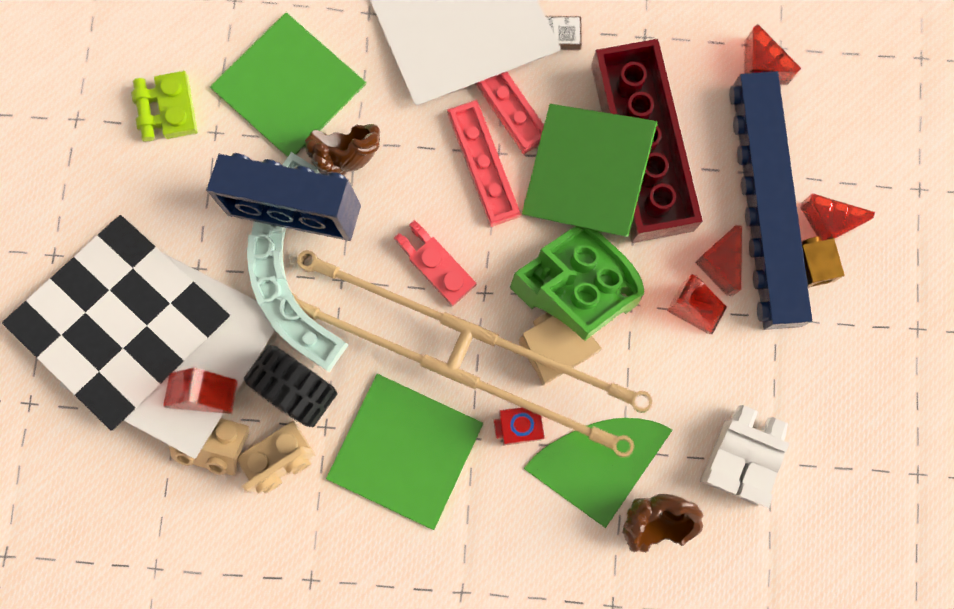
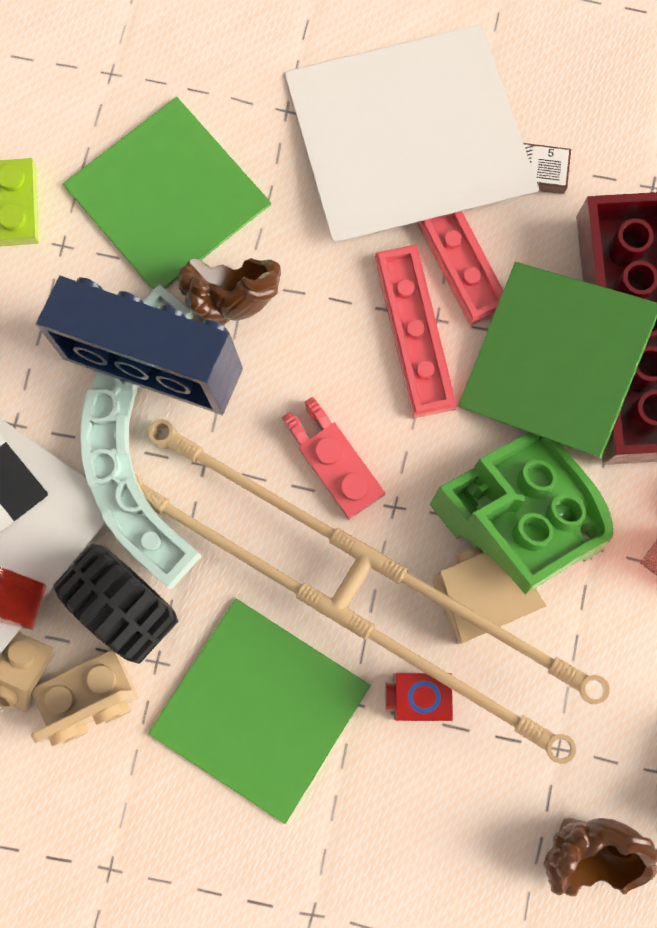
camera: 10 degrees right, 0 degrees up
(593, 474) = (511, 777): bright green sticker -> none

